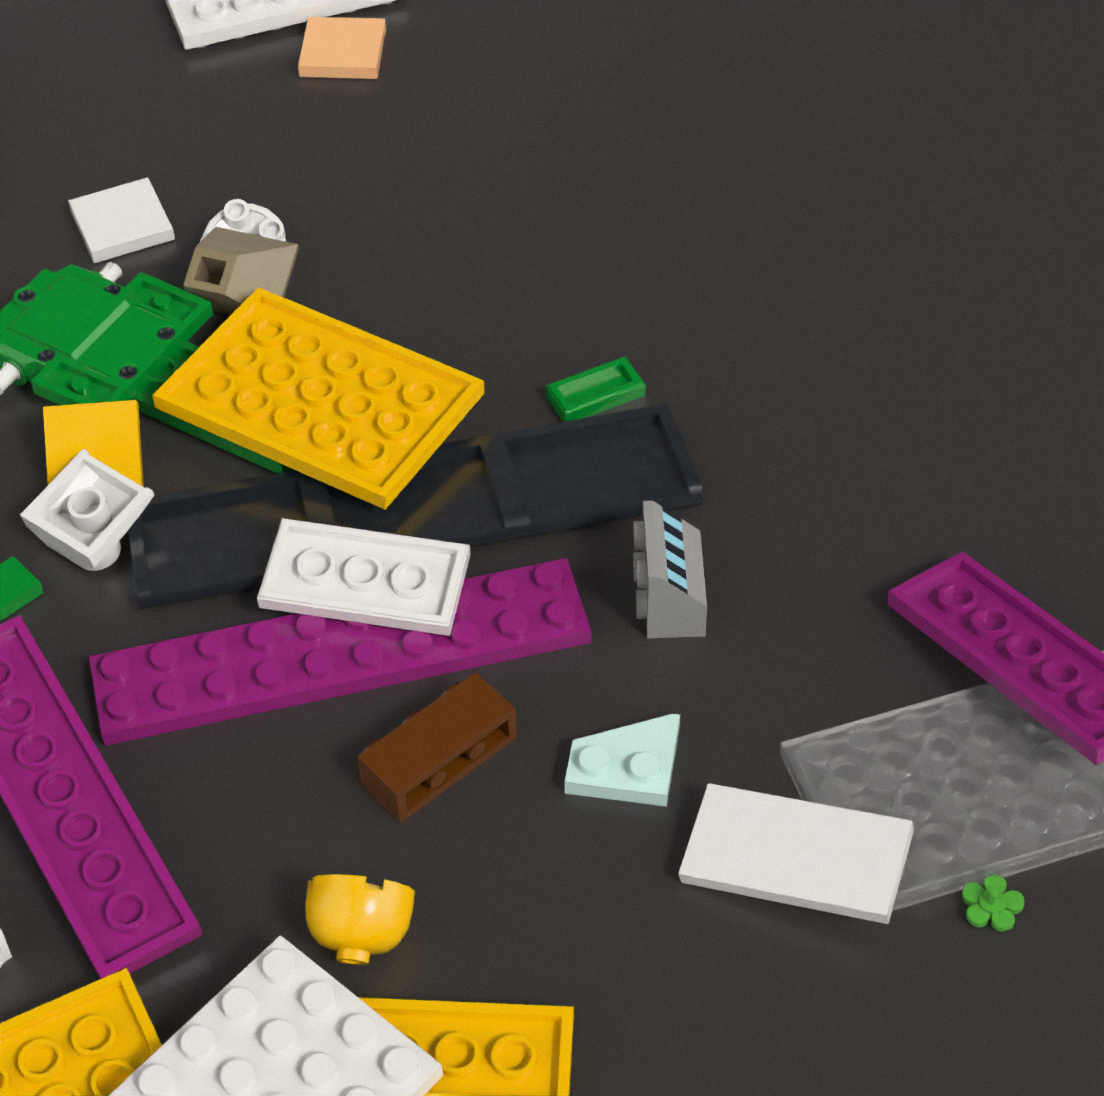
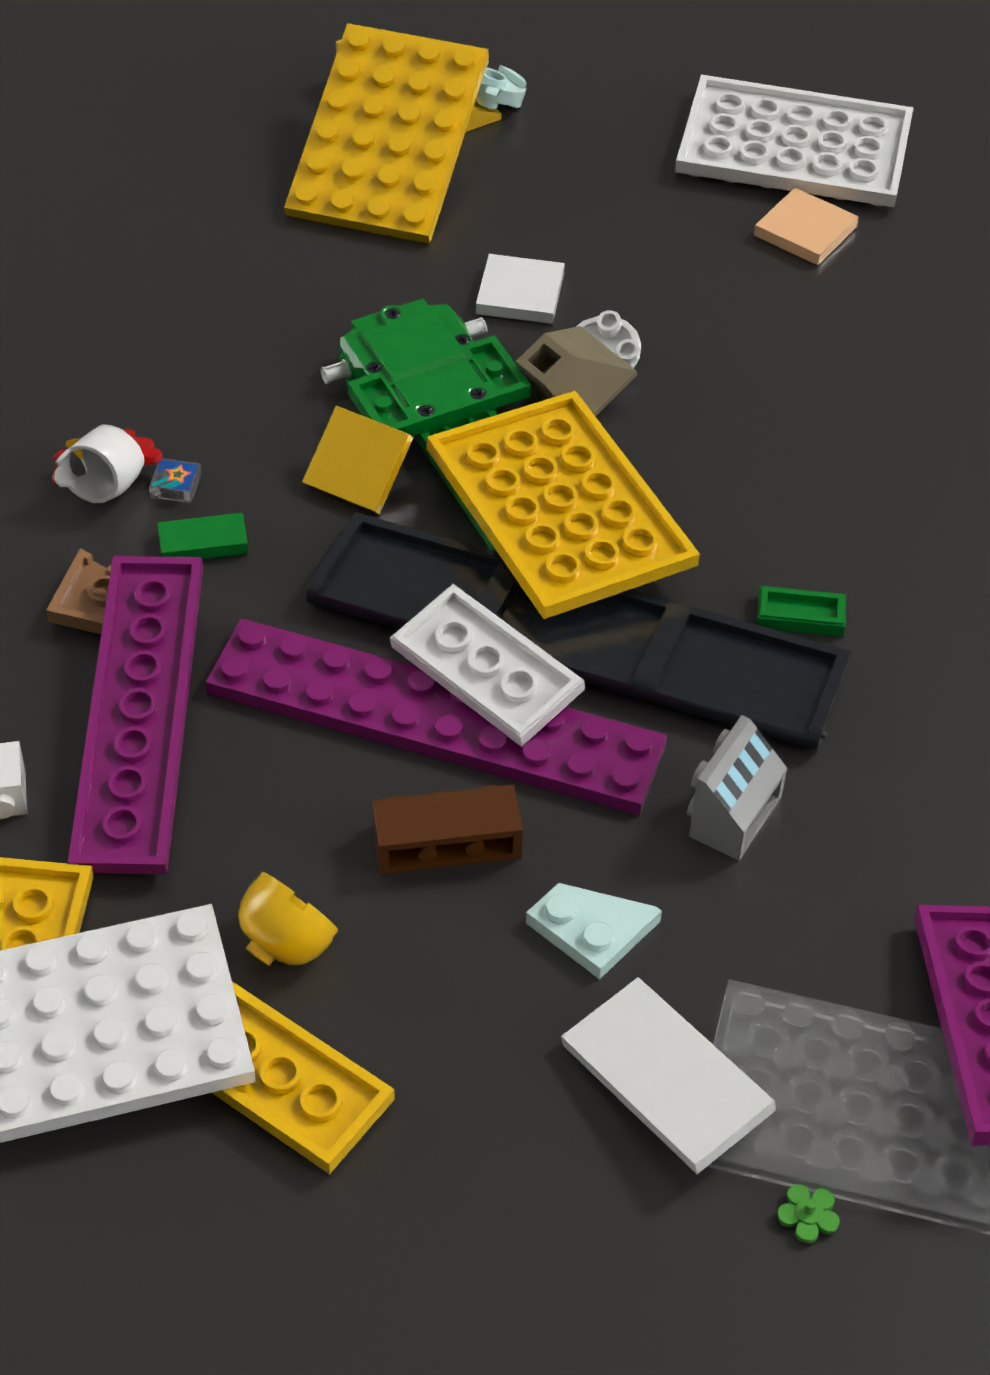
camera: 30 degrees right, 0 degrees up
(87, 512) = (316, 504): white slope -> none

